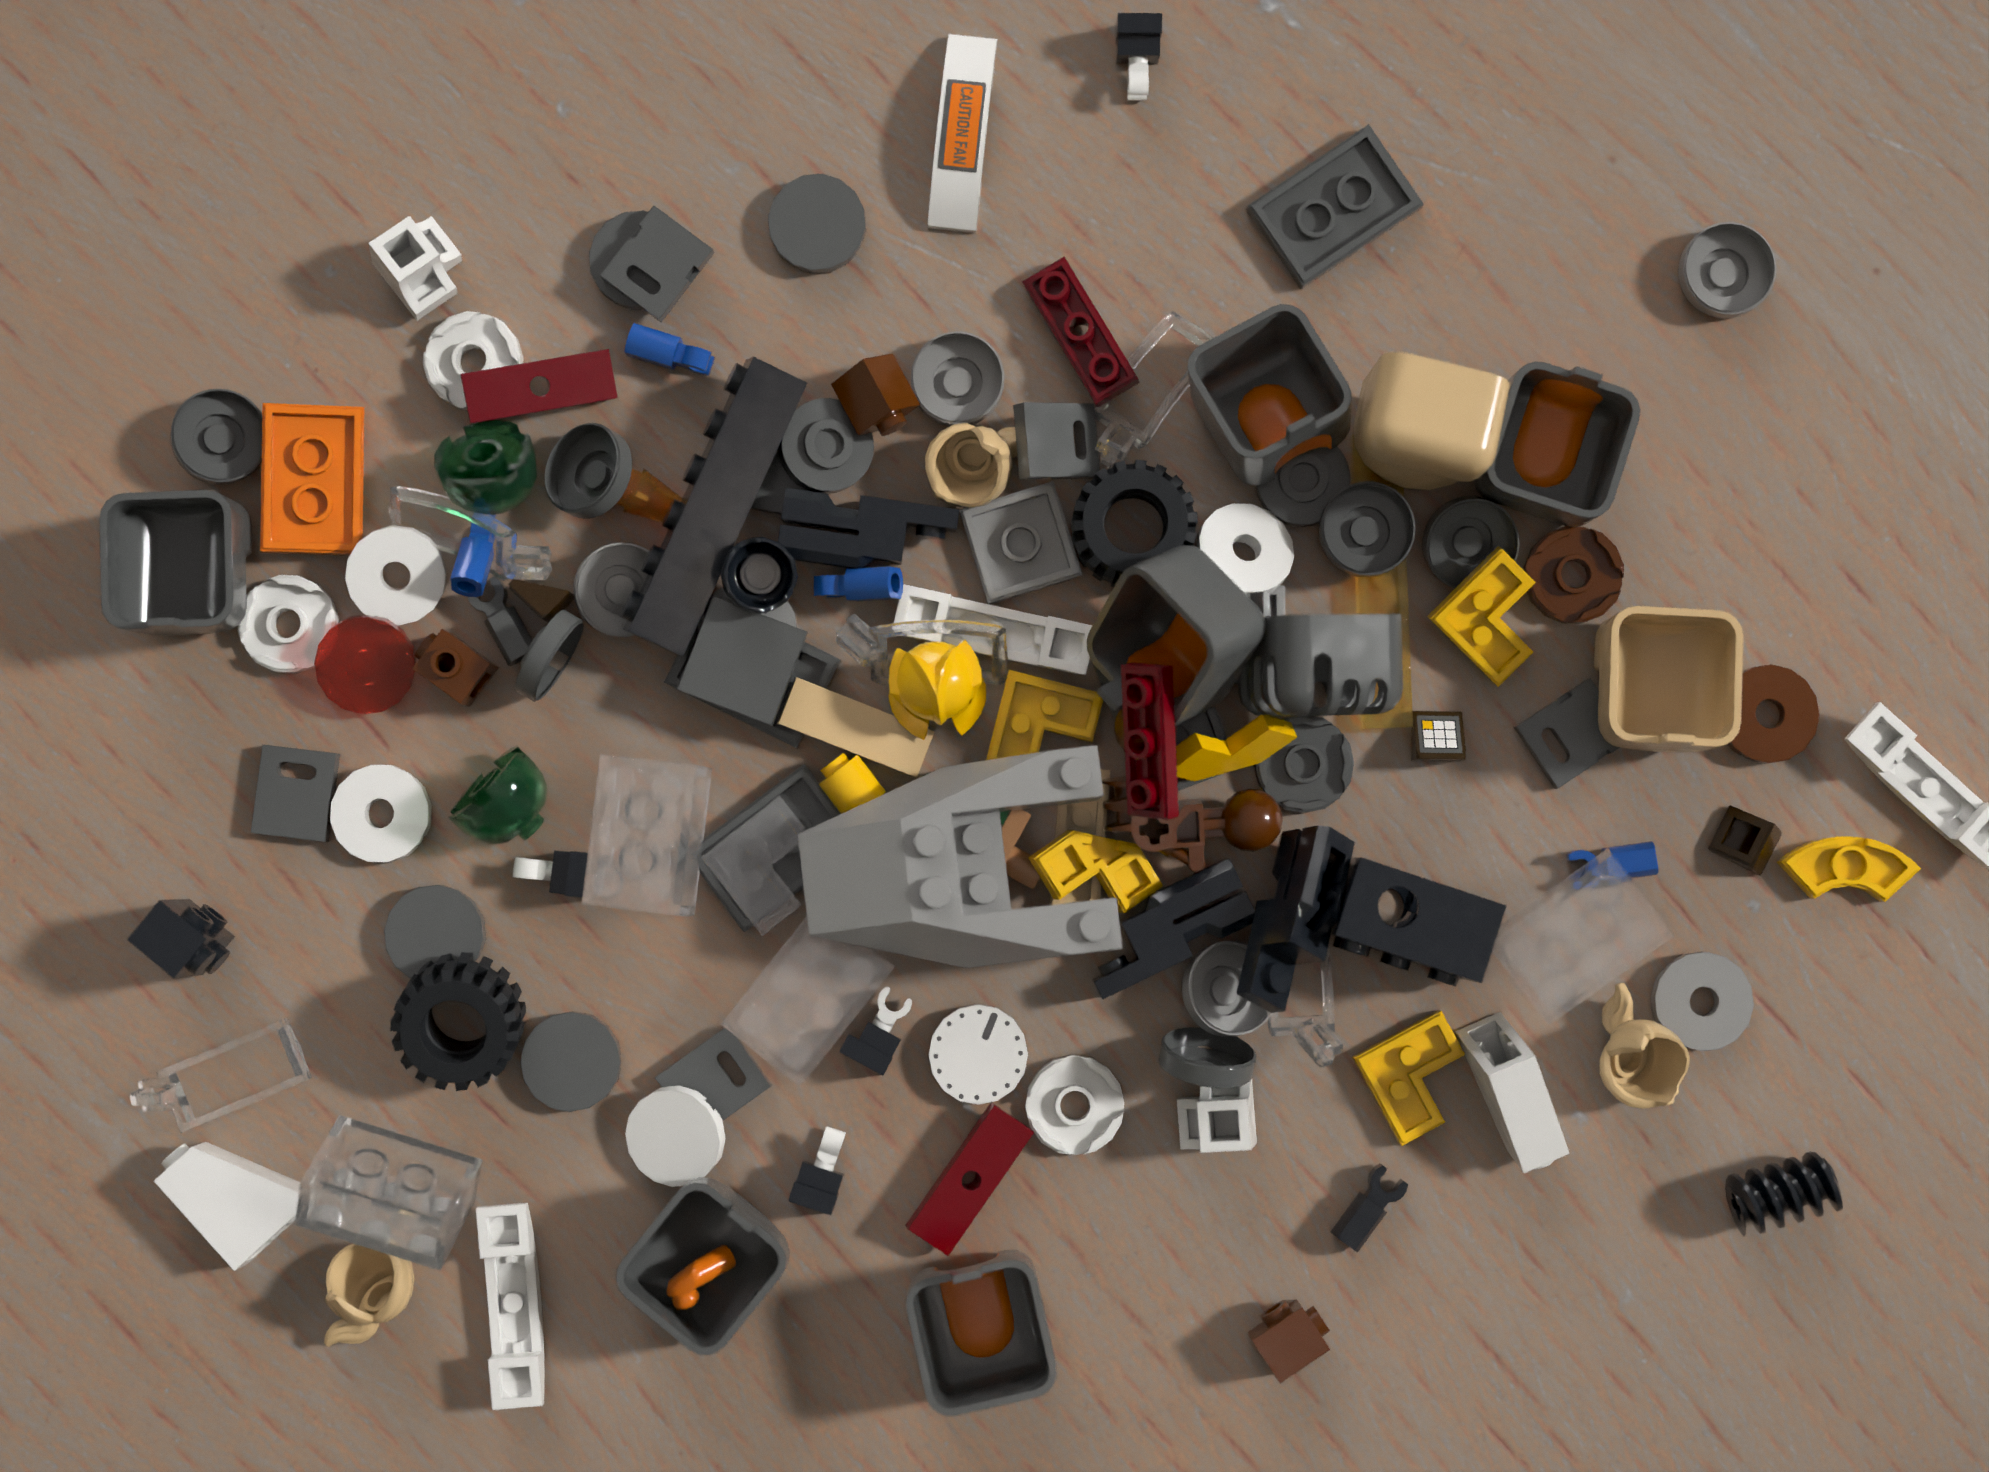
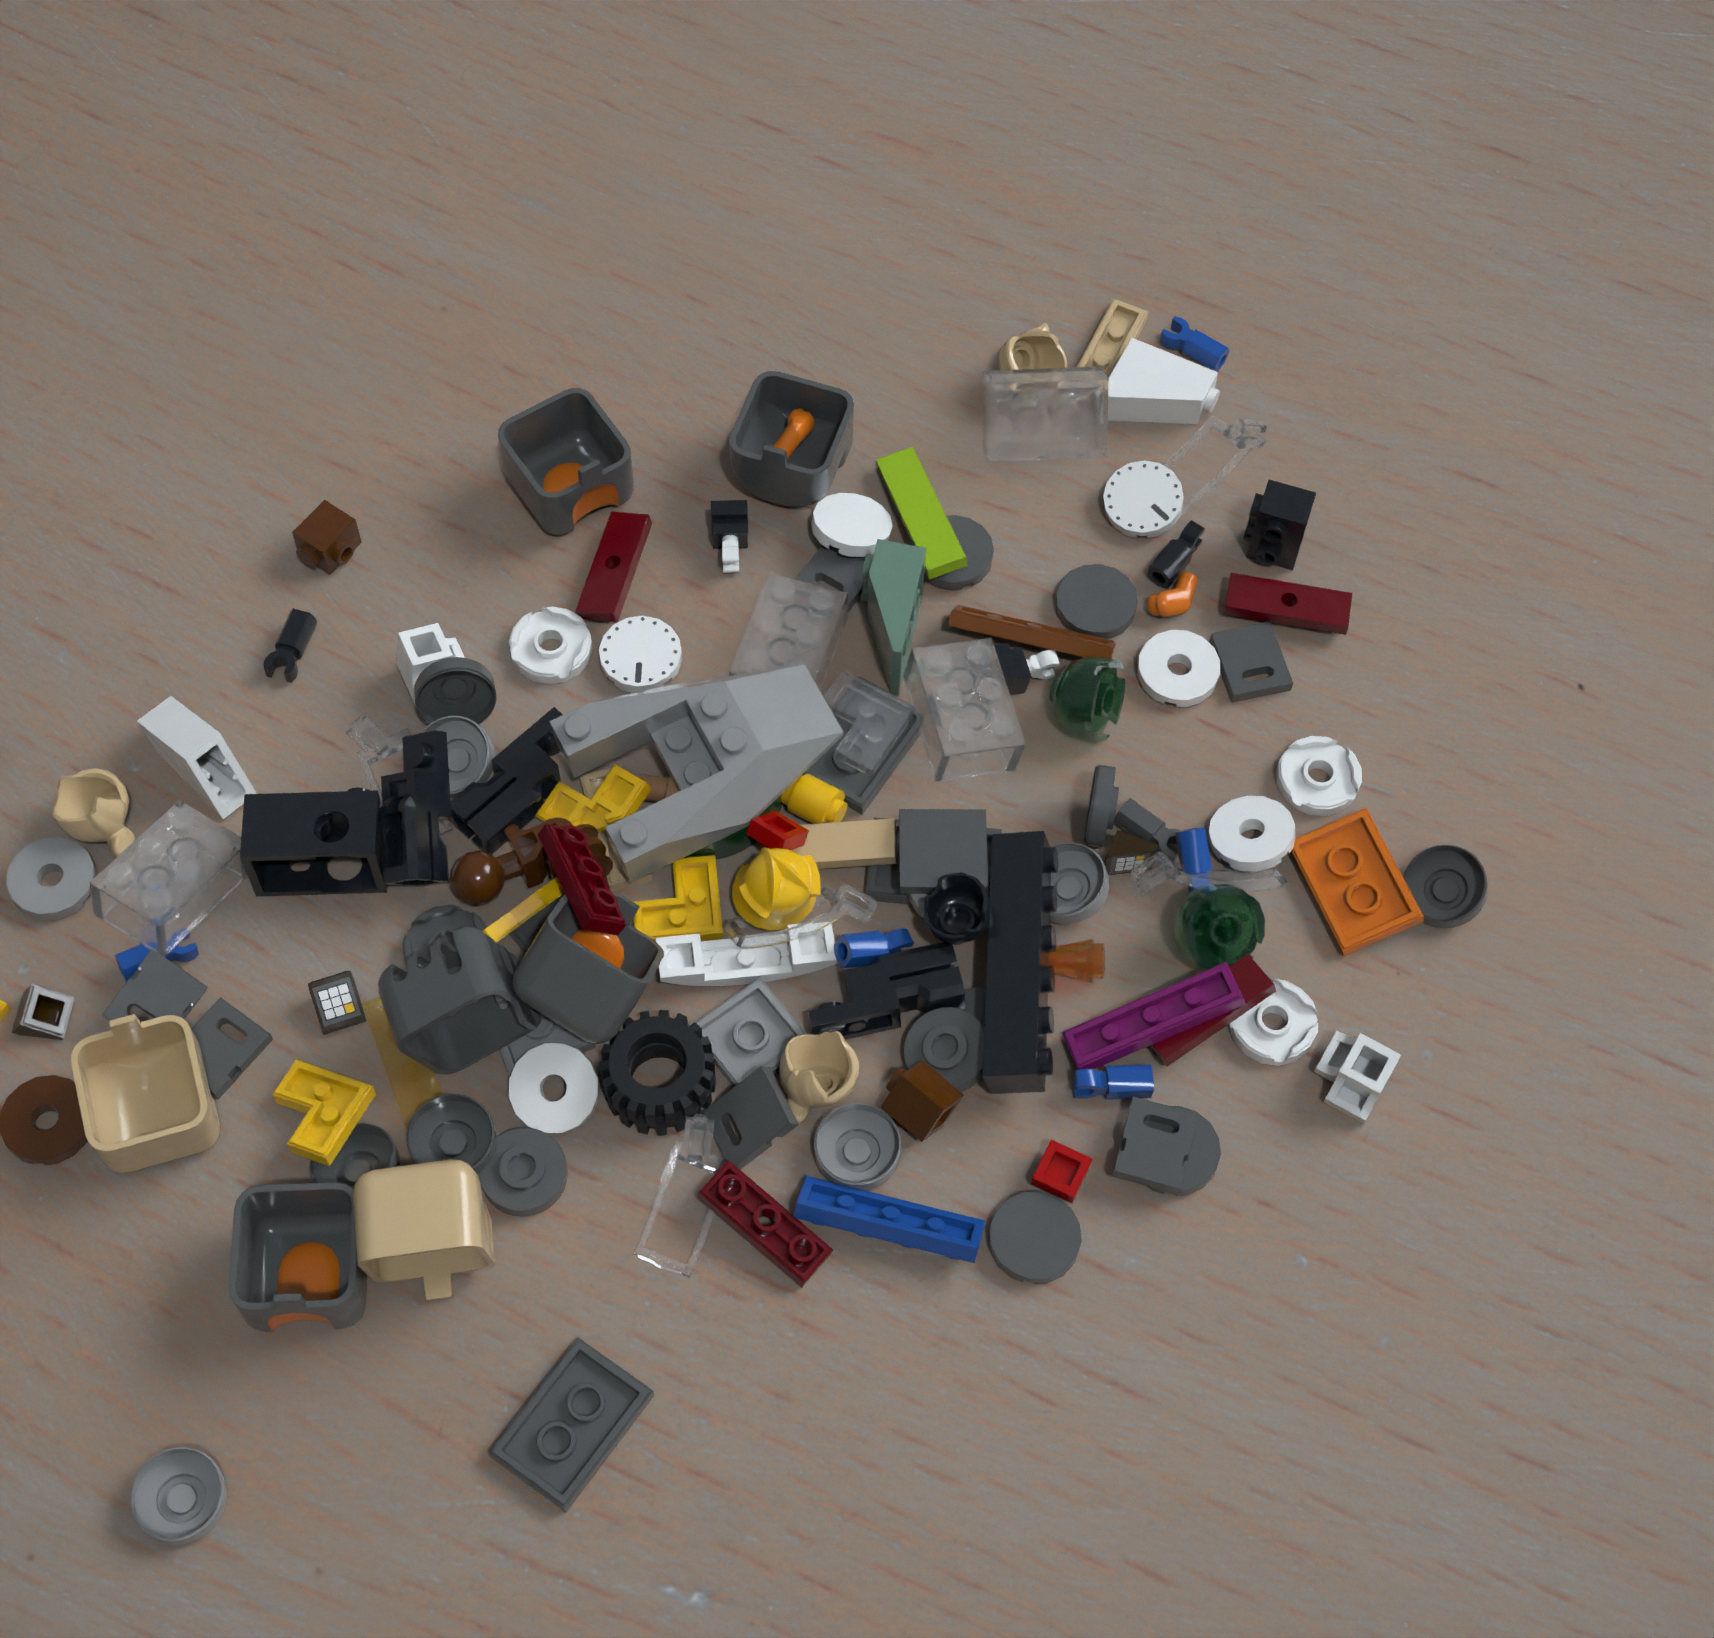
camera: 160 degrees right, 25 degrees down
(156, 1249) = (1195, 345): none -> blue bar
(174, 562) = (1424, 767): dark grey piece -> none
(194, 833) = (1288, 603): none -> dark red tile
(263, 1286) = (1113, 335): none -> tan tile
(317, 957) = (1175, 556): none -> black bar
(320, 1048) = (1143, 499): none -> white tile
(344, 899) = (1176, 600): none -> orange arm
(365, 664) = (1242, 761): clear red tile -> none
(447, 1058) = (1048, 539): black tyre -> none
(453, 666) = (1173, 782): reddish brown brick -> none
(513, 1305) = (920, 385): white slope -> none
(528, 911) = (1030, 632): none -> dark orange tile
(588, 470) = (1135, 958): dark grey piece -> none
(588, 1121) = (921, 512): none -> lime tile
(599, 396) = (1154, 1018): none -> magenta tile
(672, 997) = (894, 597): none -> sand green slope
(762, 276) = (1061, 1171): none -> red plate
(876, 1044) = (722, 632): black piece -> none
(911, 752) = (777, 831): none -> red plate
(955, 288) = (889, 1219): none -> blue plate
(961, 133) = (941, 1368): white slope -> none
(1138, 45) = (808, 1501): black piece -> none
(1269, 392) = (574, 1204): dark grey piece -> none
(1396, 1070) = (295, 746): yellow tile -> none
(1602, 567) = (245, 1153): reddish brown tile -> none
(1620, 812) = (157, 989): none -> dark grey piece

